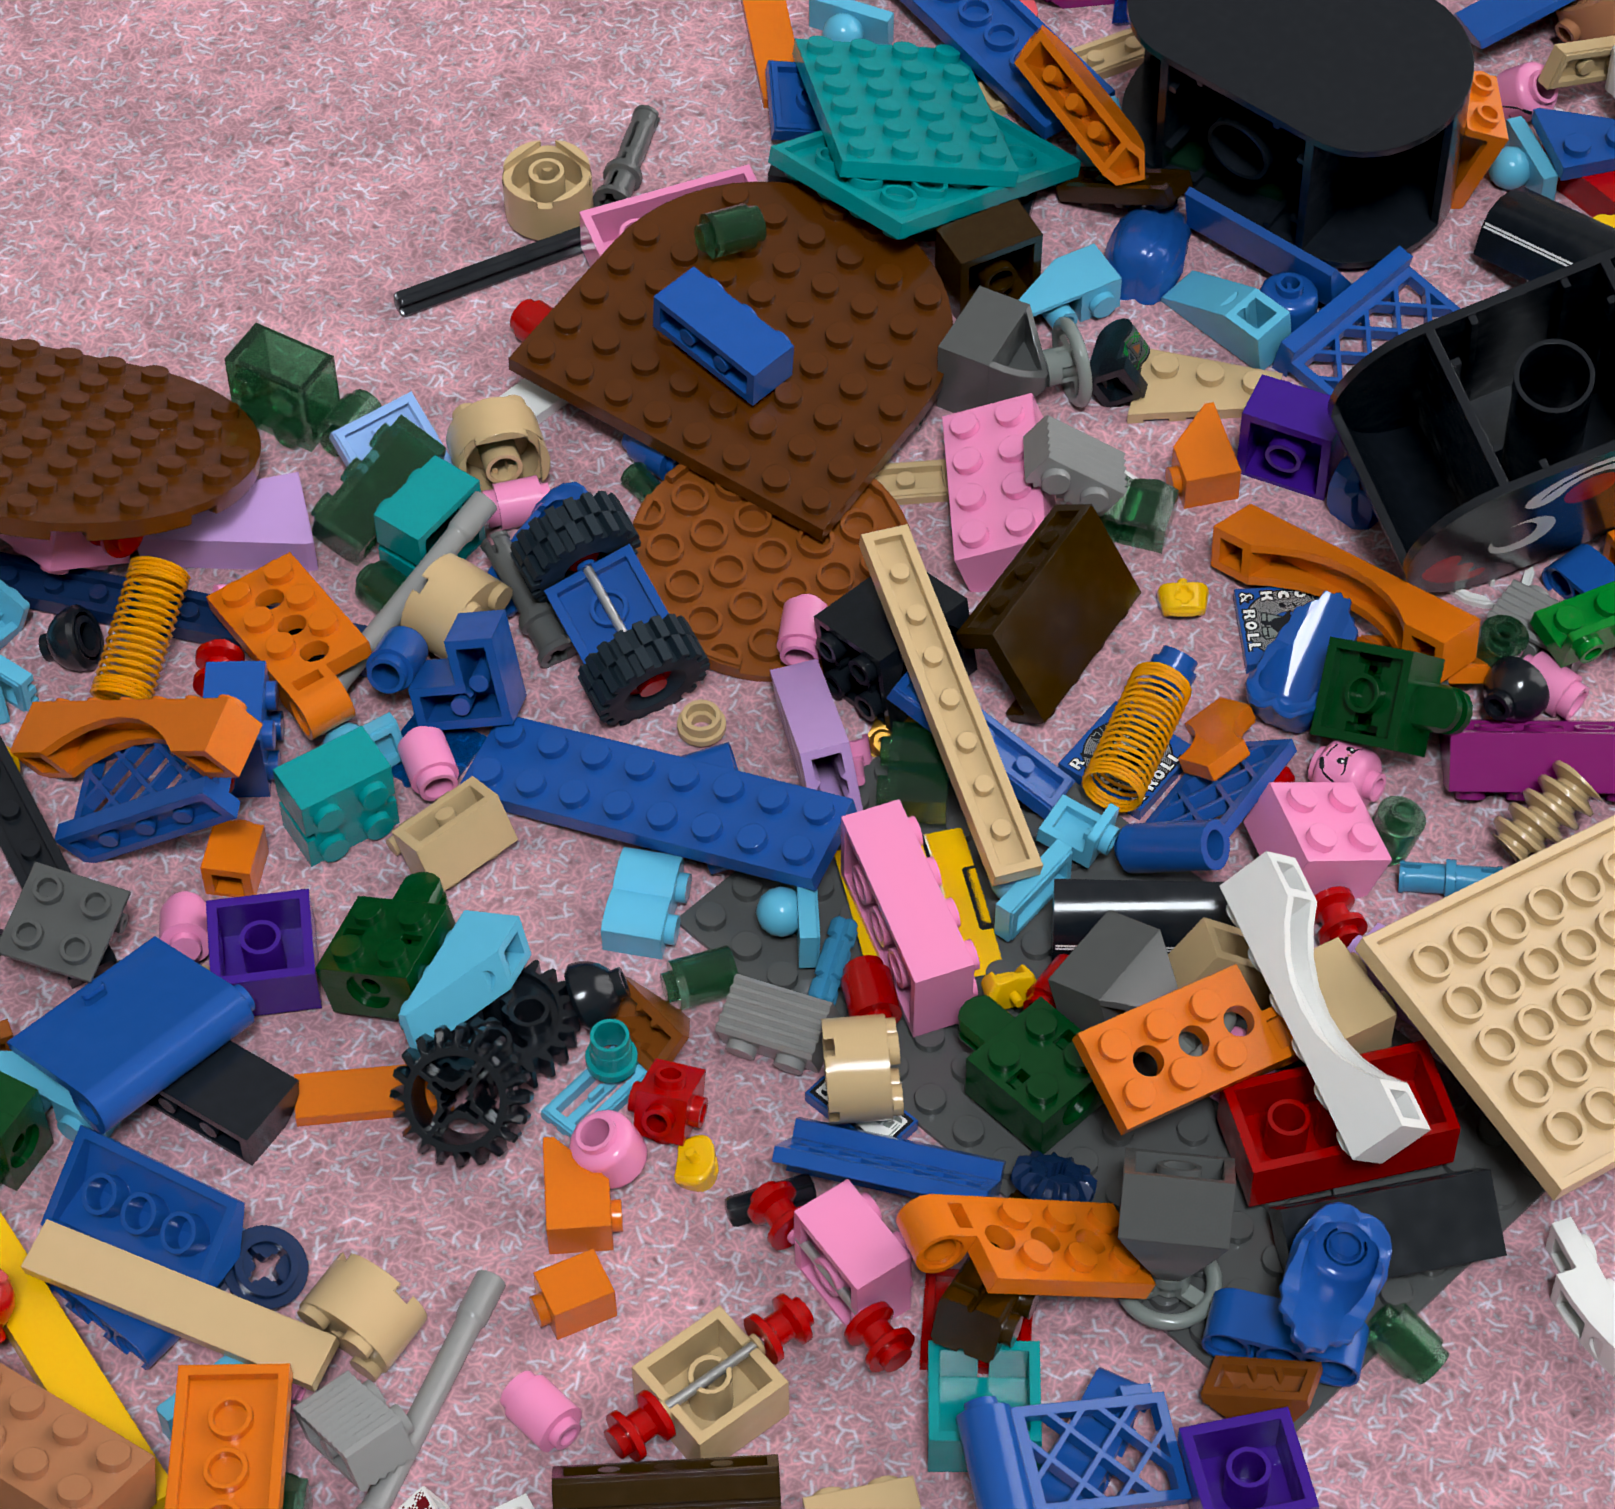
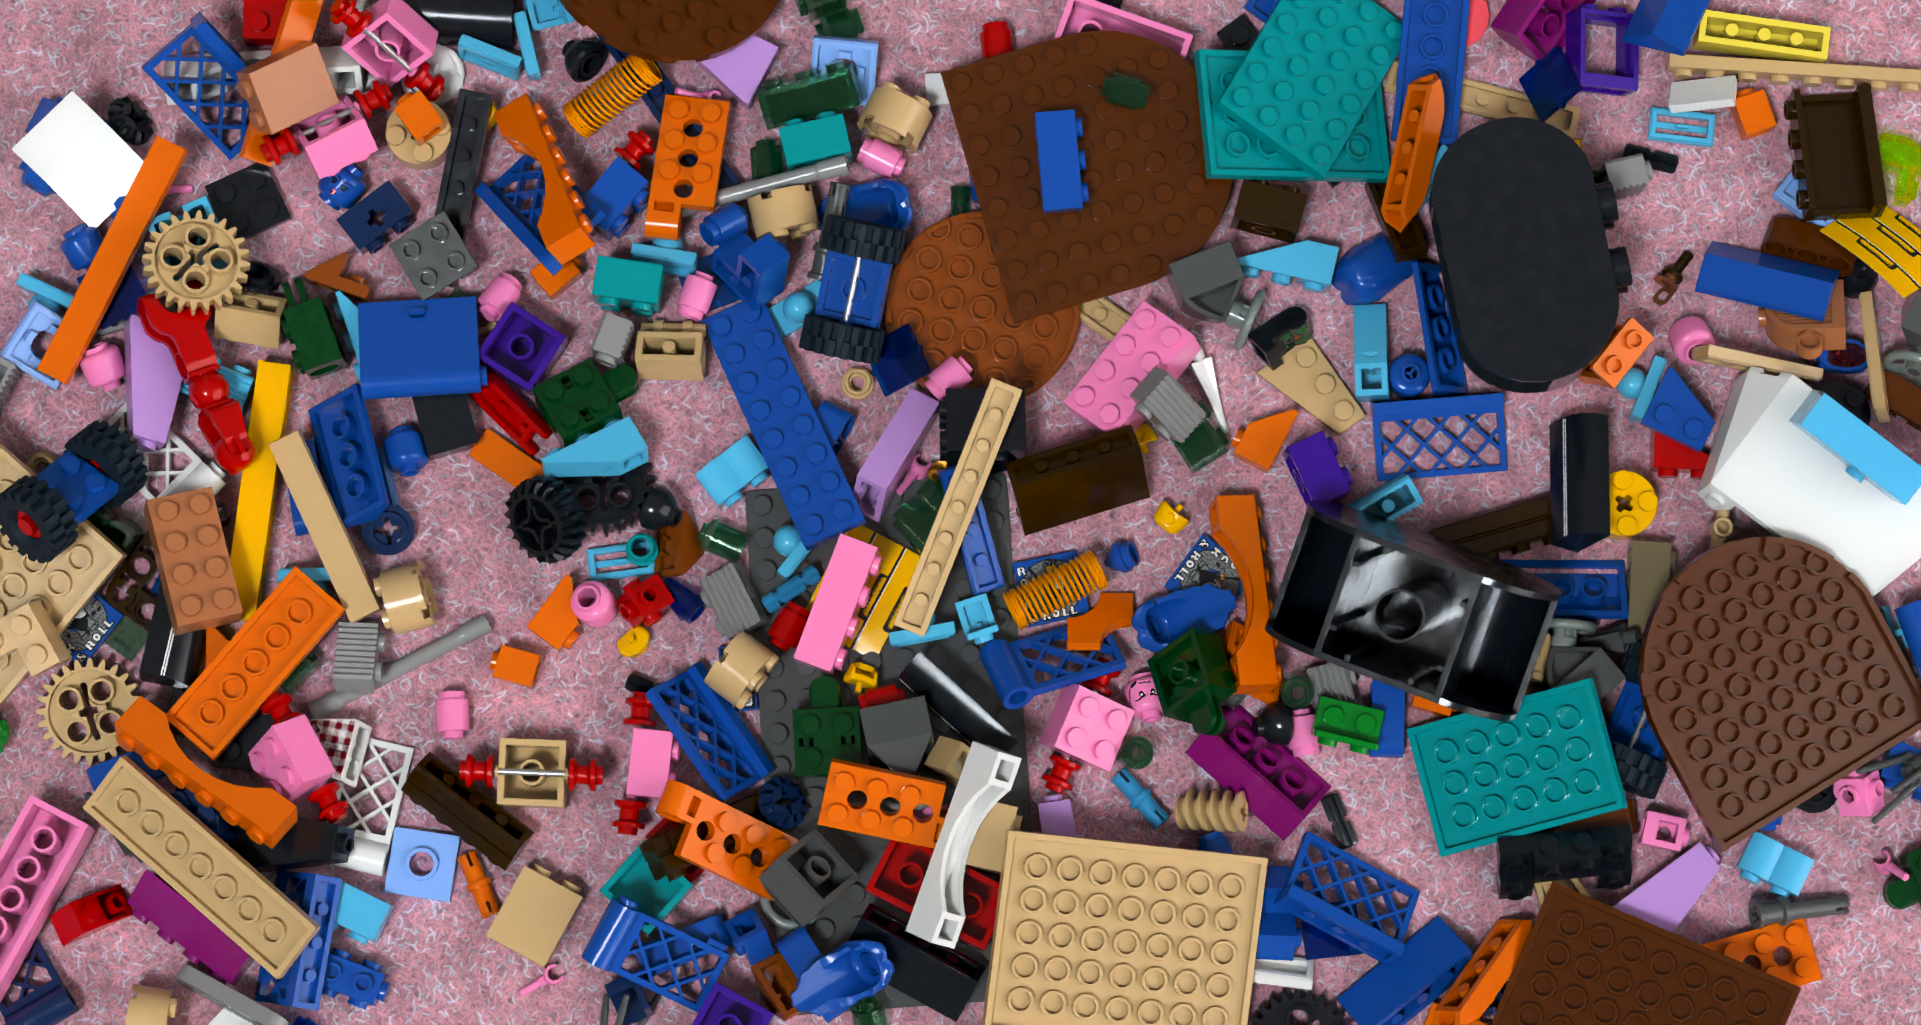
camera: 35 degrees right, 30 degrees up
(214, 1161) = (405, 451): none -> blue head
(310, 1035) = (511, 413): none -> red hinge
(369, 853) = (613, 341): none -> light grey brick
(561, 697) = (791, 311): none -> medium azure tile
(725, 1073) = (687, 603): none -> clear blue cone
(736, 660) = (900, 361): none -> clear blue piece
(1167, 1358) = (749, 936): none -> blue brick

